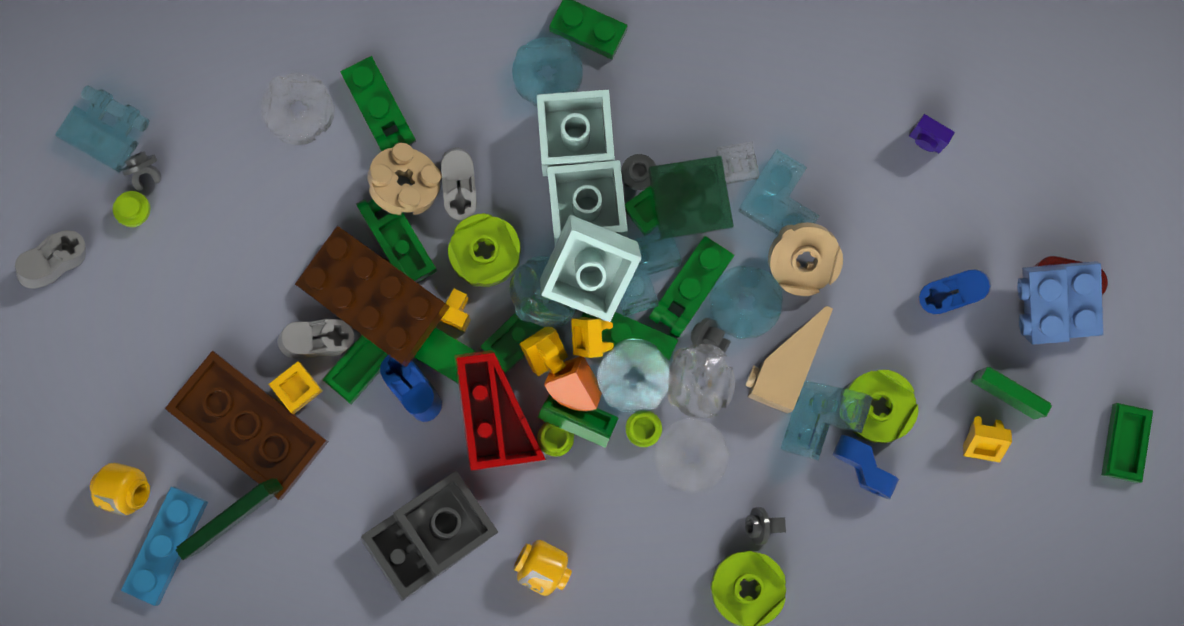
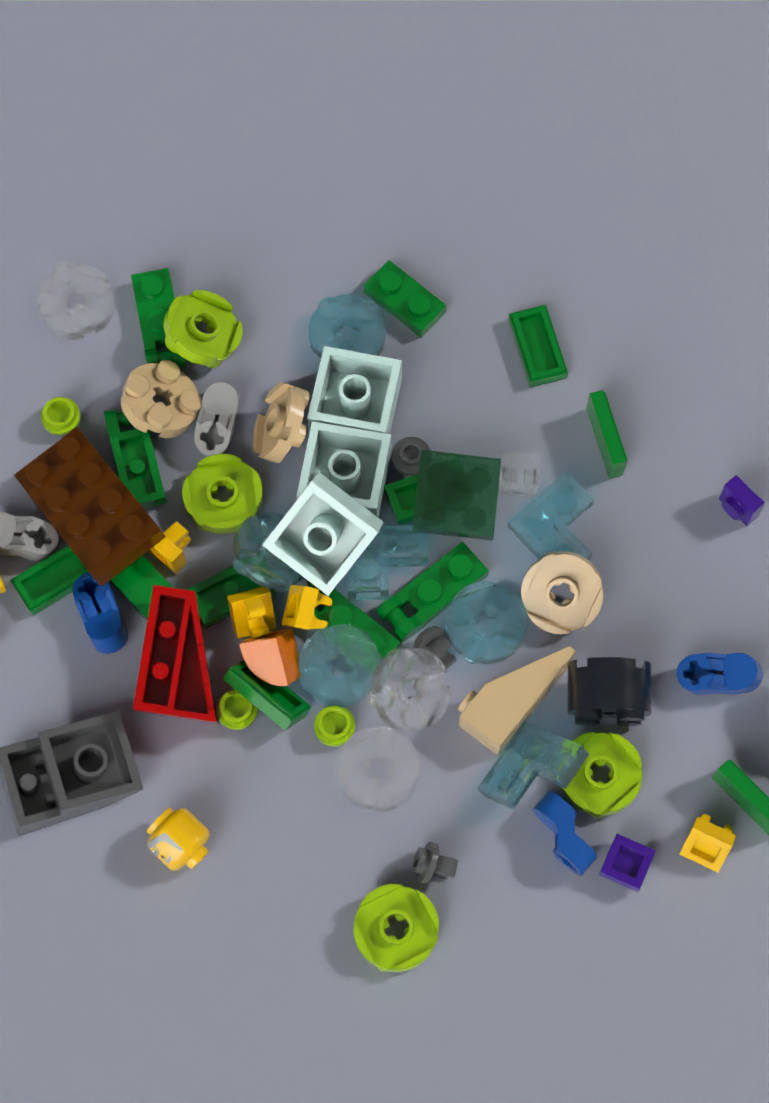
camera: 20 degrees right, 10 degrees down
(318, 218) = (60, 416): none -> lime plate
(416, 122) = (194, 345): none -> lime plate
(518, 173) = (282, 424): none -> tan plate
(716, 40) = (537, 345): none -> green tile
(800, 105) = (606, 434): none -> green tile
(870, 335) = (609, 690): none -> black brick
(924, 477) = (627, 862): none -> dark purple plate

